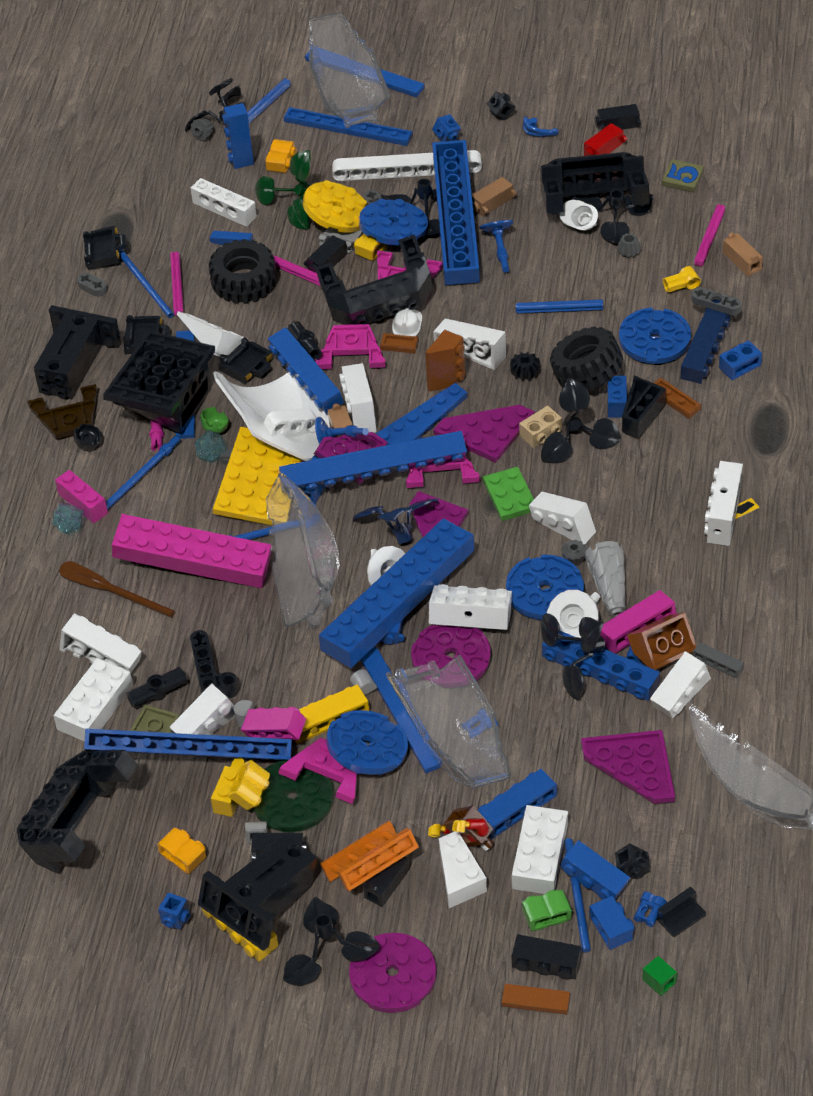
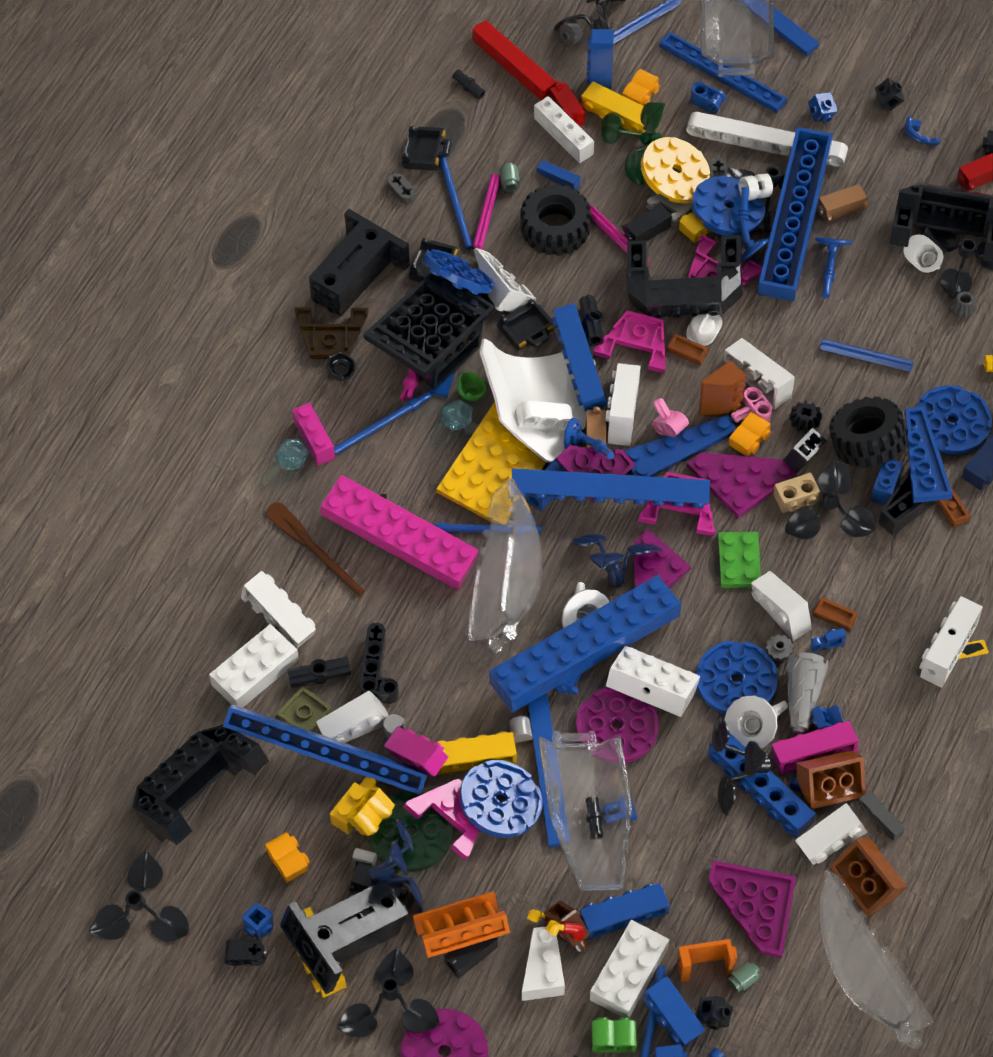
camera: 15 degrees right, 10 degrees up
(46, 907) = (143, 874): none -> black plant
(124, 189) = (468, 84): none -> black pin
(157, 161) = (513, 59): none -> red brick
(169, 943) = (241, 953): none -> black piece
(170, 329) = (458, 272): none -> blue plate
(188, 251) = (509, 177): none -> sand green brick
(217, 177) = (566, 100): none -> red brick
(248, 172) = (605, 101): none -> yellow brick
(282, 828) = (385, 870): none -> dark blue plant
(340, 147) = (706, 97): none -> blue piece
(405, 400) = (668, 422): none -> bright pink beam
(410, 220) = (750, 246): none -> blue dish
(412, 198) = (759, 186): none -> white wheel
(459, 733) = (594, 818): none -> black pin
(477, 370) = (757, 406): none -> bright pink beam
(481, 392) = (750, 434): none -> light orange brick
(535, 390) = (804, 450): none -> black brick
(604, 814) = (705, 953): none -> orange panel
(612, 513) = (835, 614): none -> dark orange tile
(617, 532) = (830, 640): none -> blue plate
(637, 594) = (826, 717): none -> blue bracket
(645, 368) = (925, 463): none -> blue wing
(647, 825) = (744, 976): none -> sand green brick
(728, 708) = (868, 876): none -> dark orange slope

